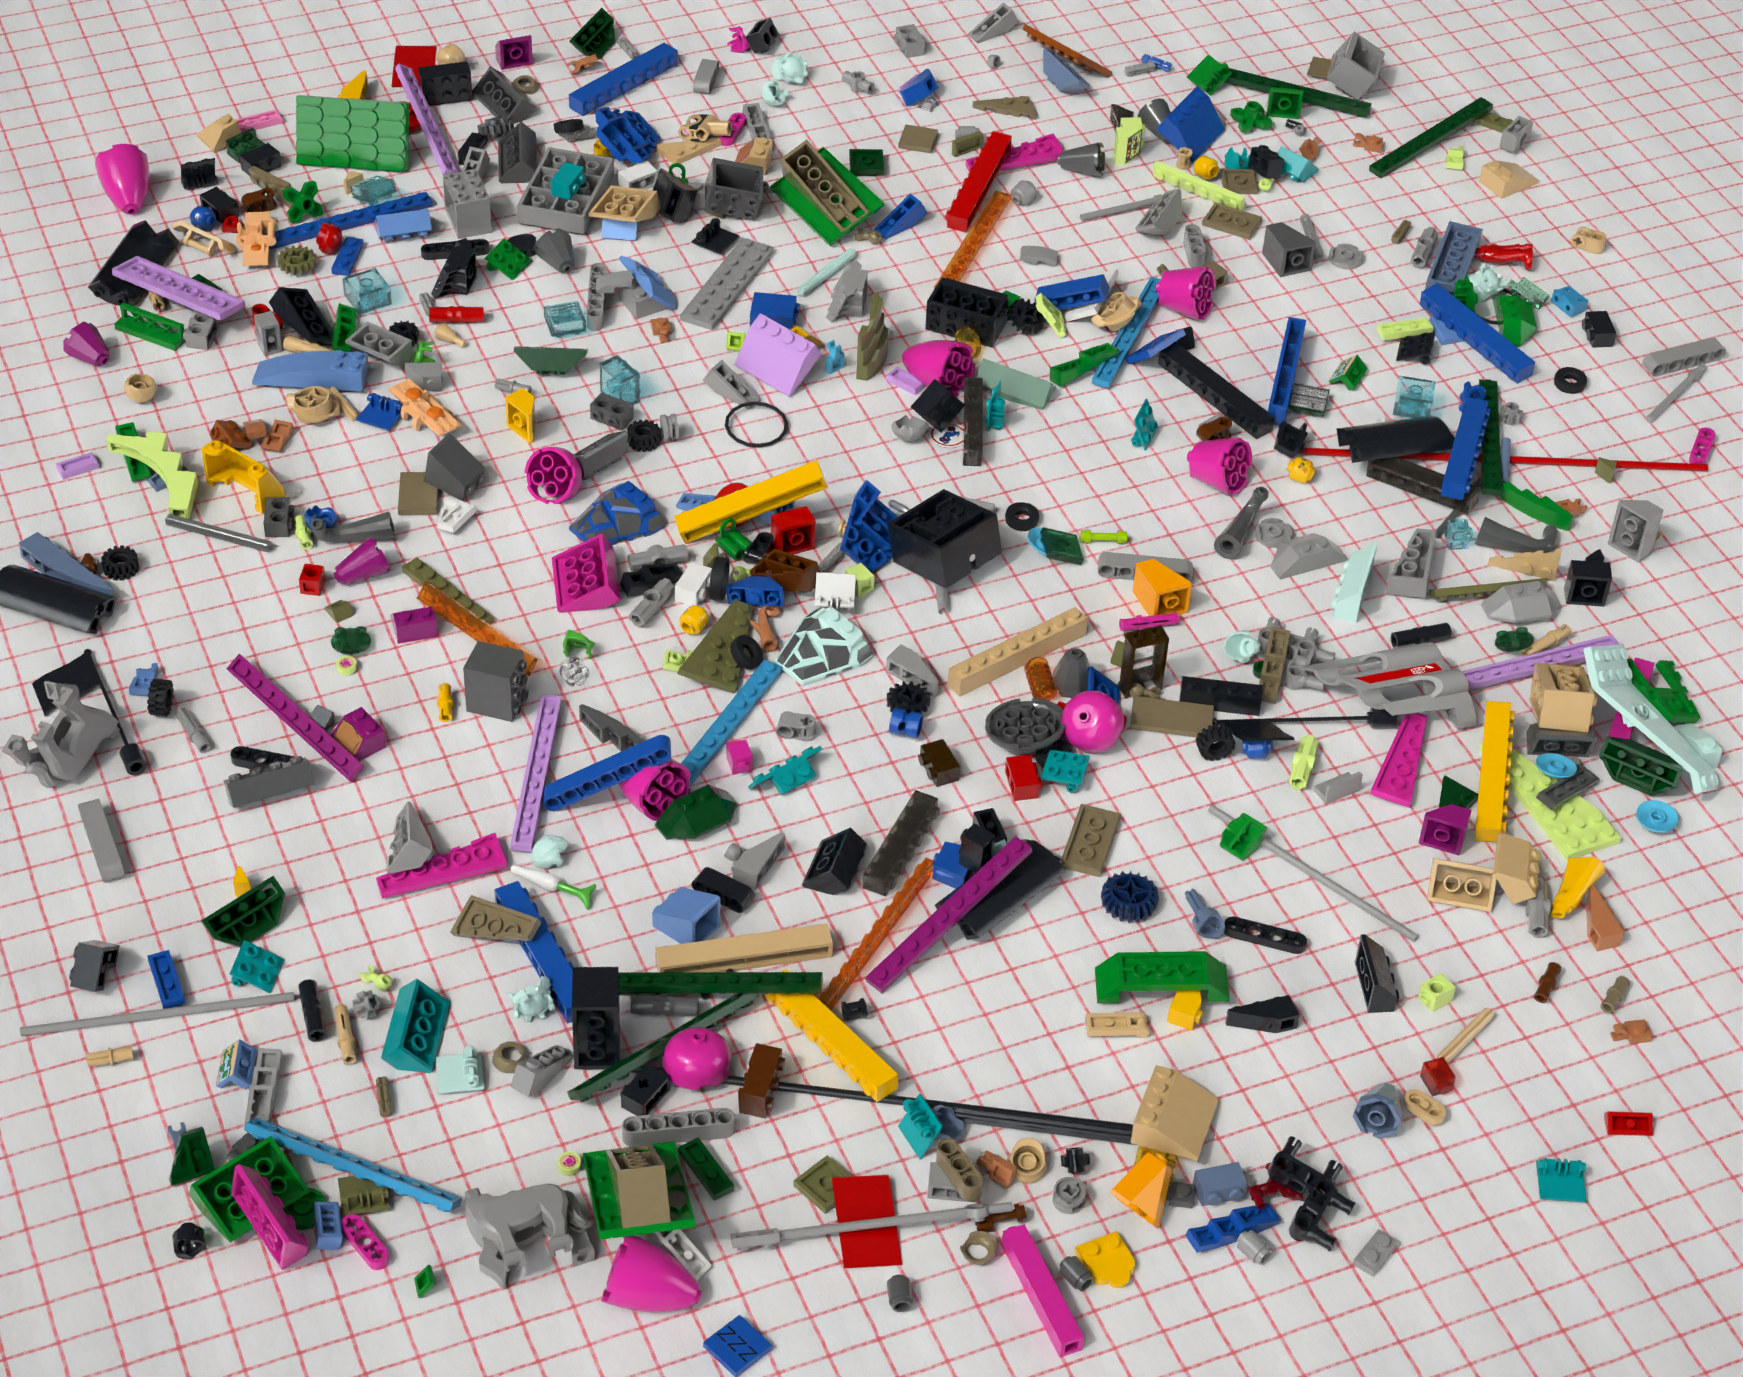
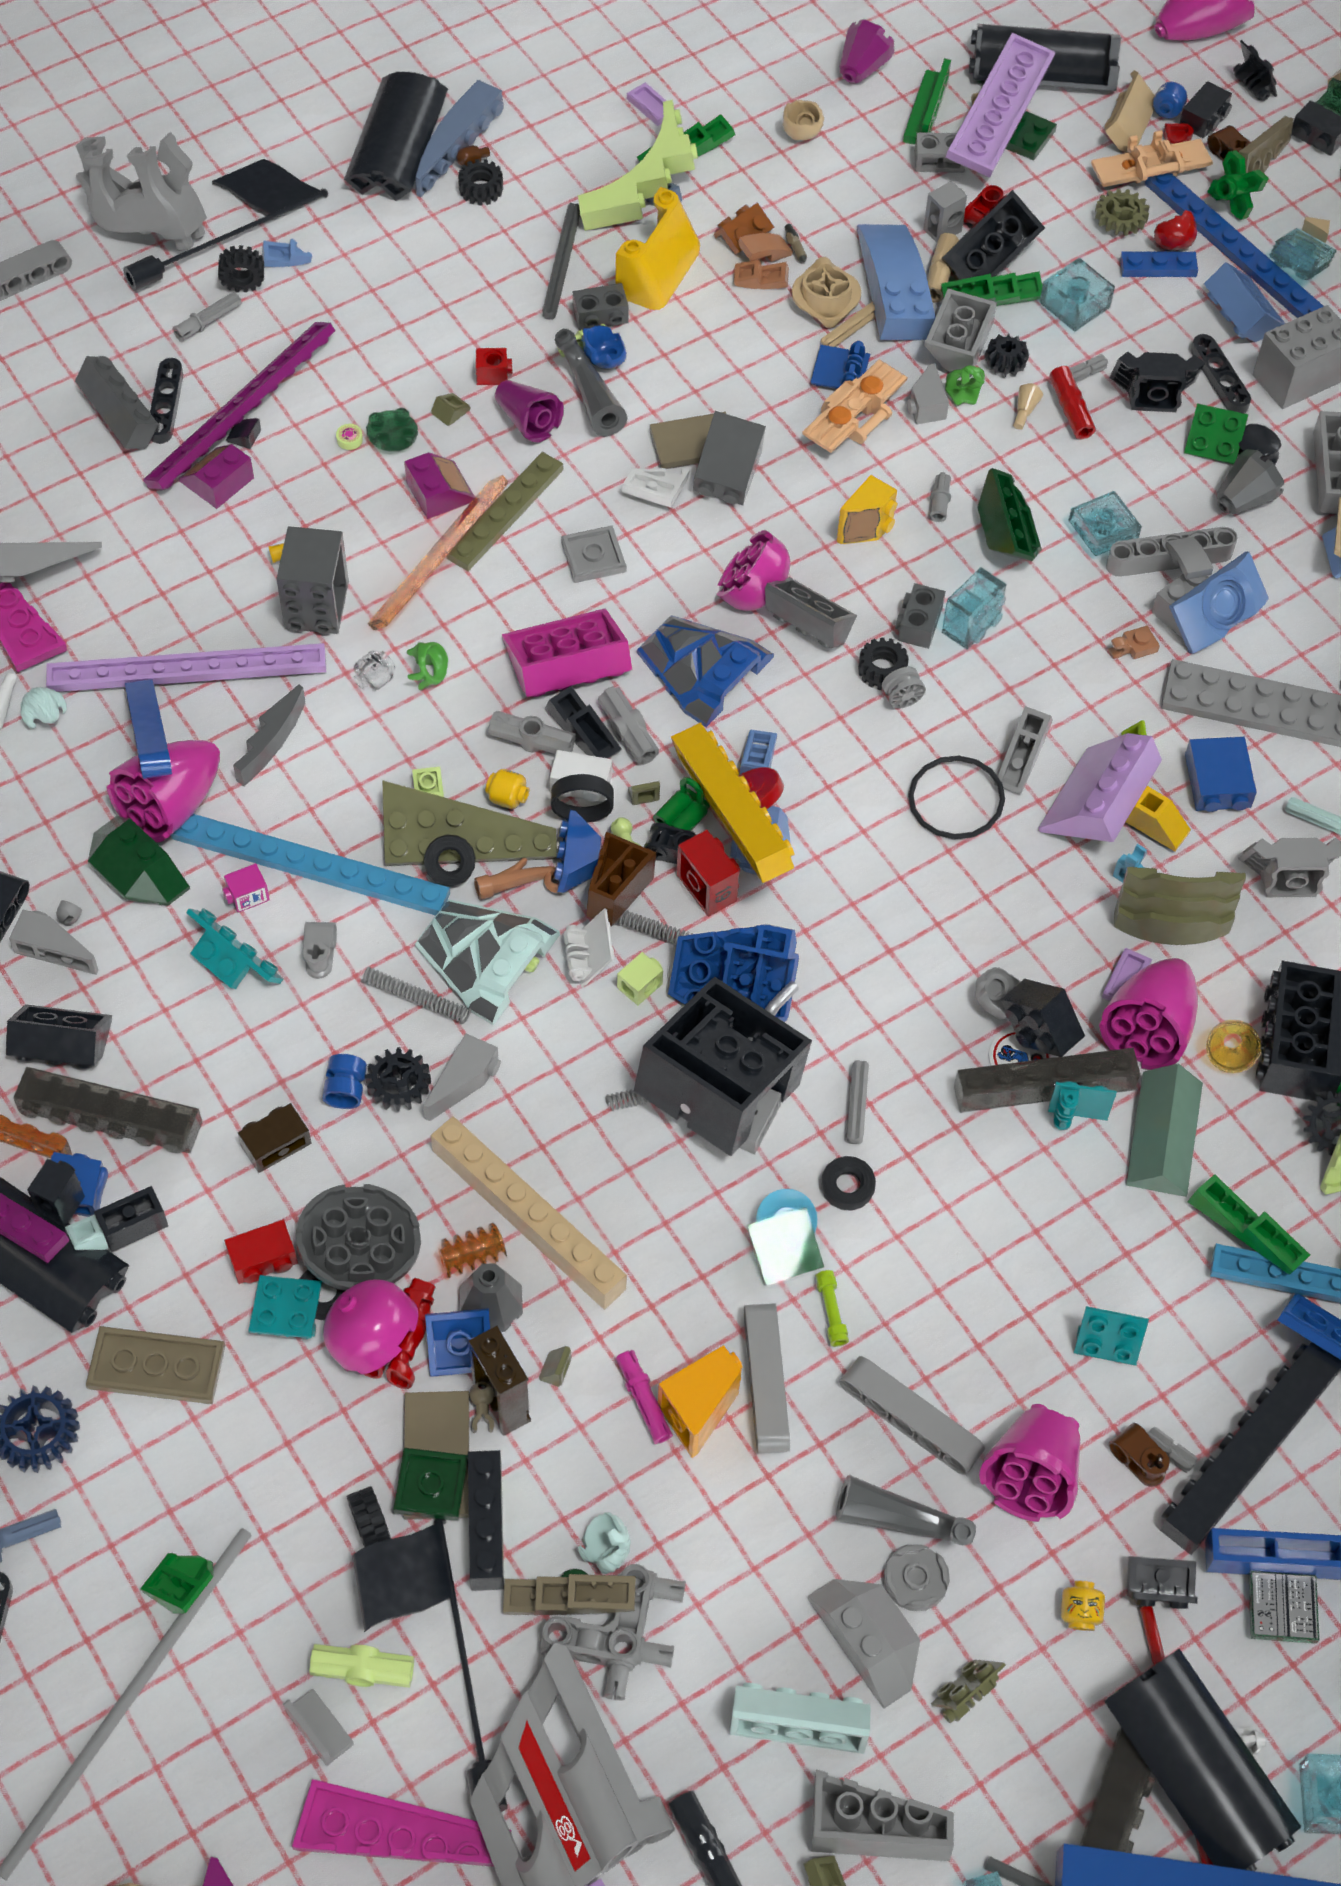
camera: 80 degrees right, 15 degrees up
(246, 416) = (794, 241): none -> dark tan piece
(501, 556) = (593, 554): none -> light grey tile
(827, 704) = (414, 991): none -> light grey piece
(1177, 514) = (912, 1415): none -> light grey beam
(1193, 715) = (431, 1484): none -> dark green tile
(1344, 516) = (976, 1681): none -> olive hinge

